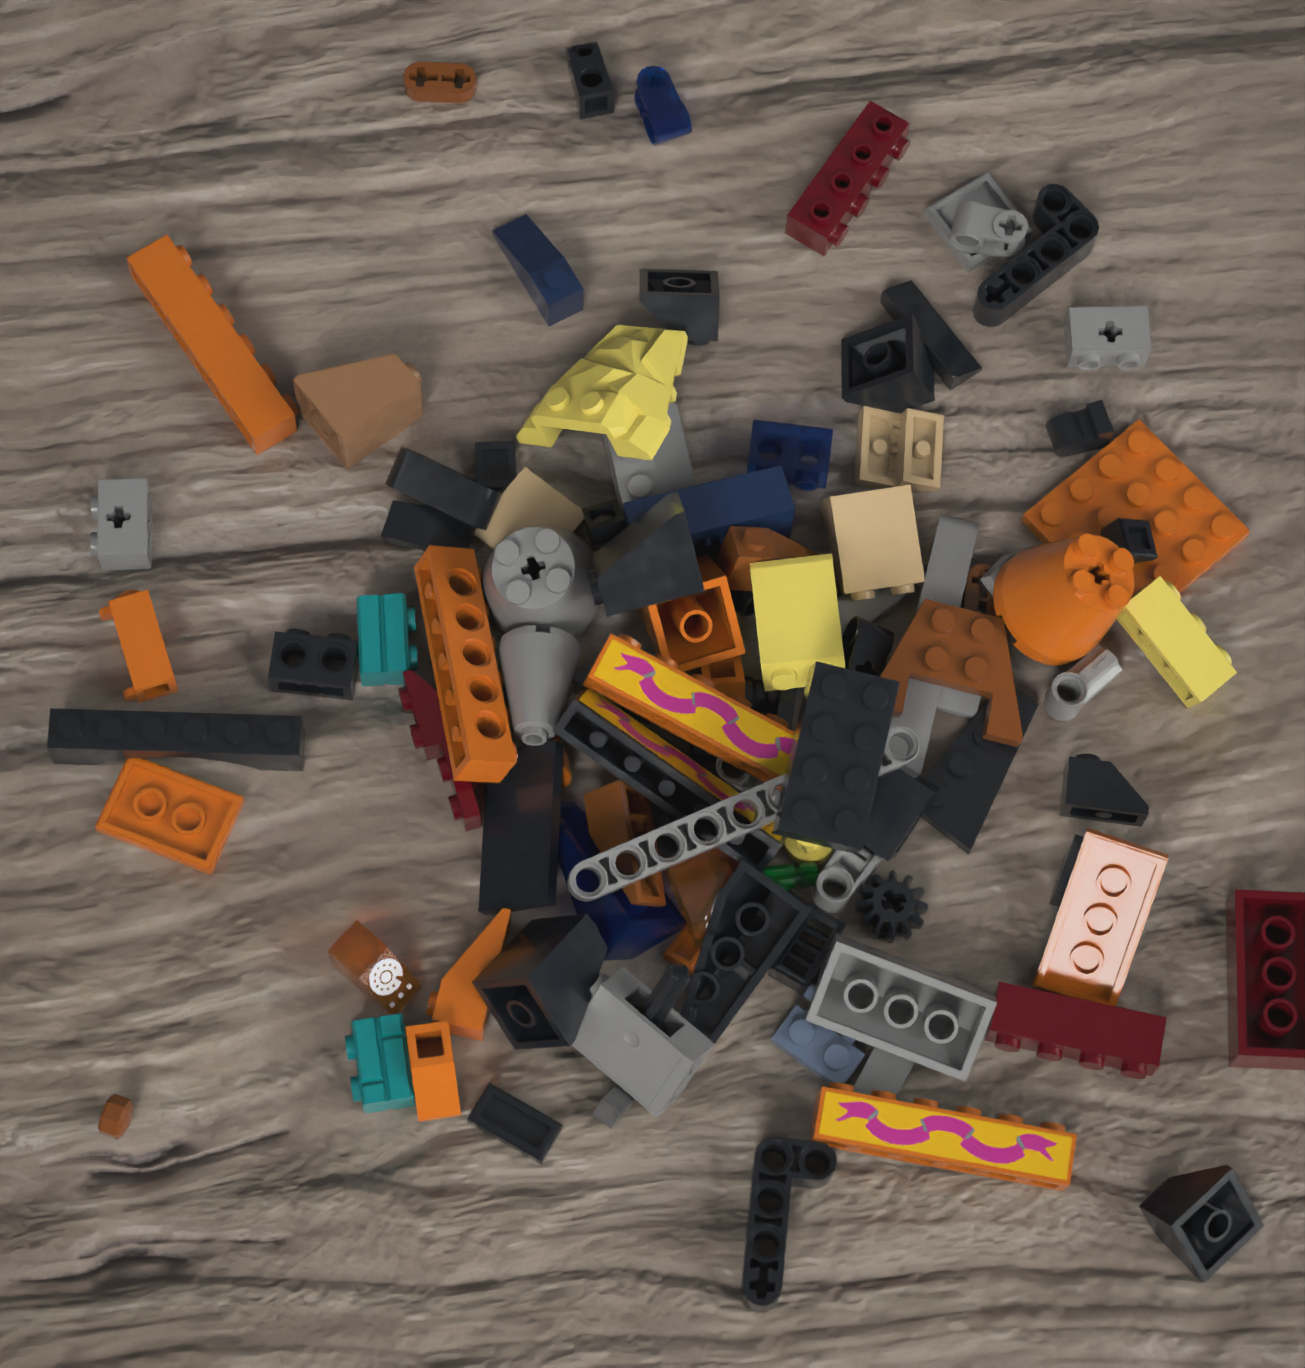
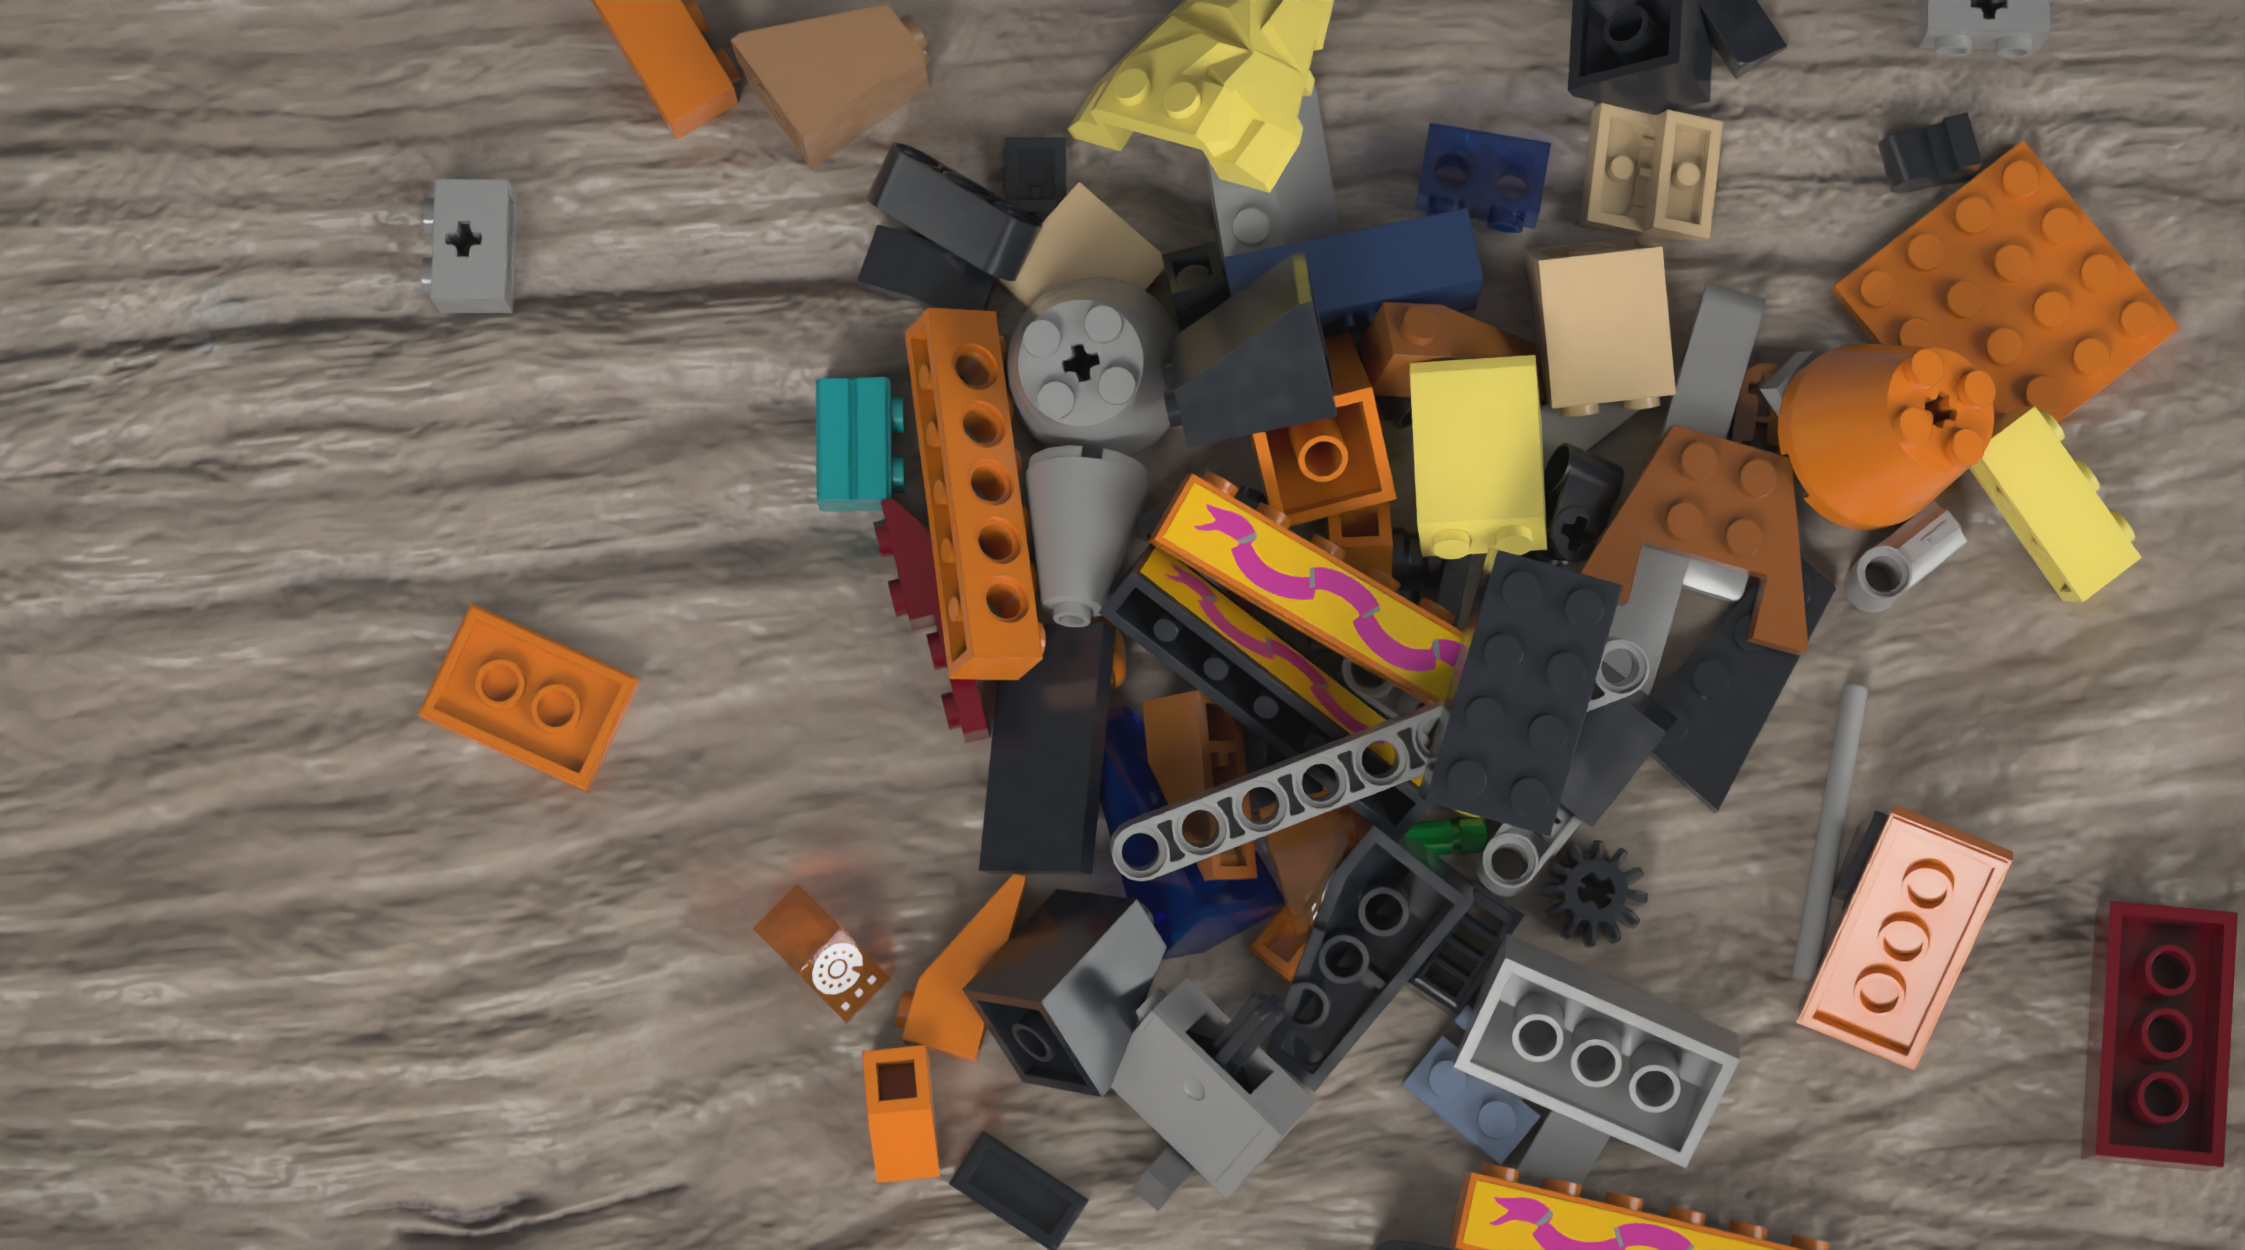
camera: 10 degrees right, 10 degrees up
(115, 735) = (571, 586): black arch -> none
(115, 1116) = (437, 1155): dark orange tile -> none
(141, 646) = (493, 437): orange brick -> none
(311, 675) = (744, 494): black brick -> none
(382, 1063) = (824, 1096): teal brick -> none
(1045, 862) = (1829, 832): none -> light grey axle
(1076, 1030) = (1859, 1096): dark red brick -> none
(1099, 793) = (1917, 731): black slope -> none
(1133, 536) = (1993, 339): black slope -> none

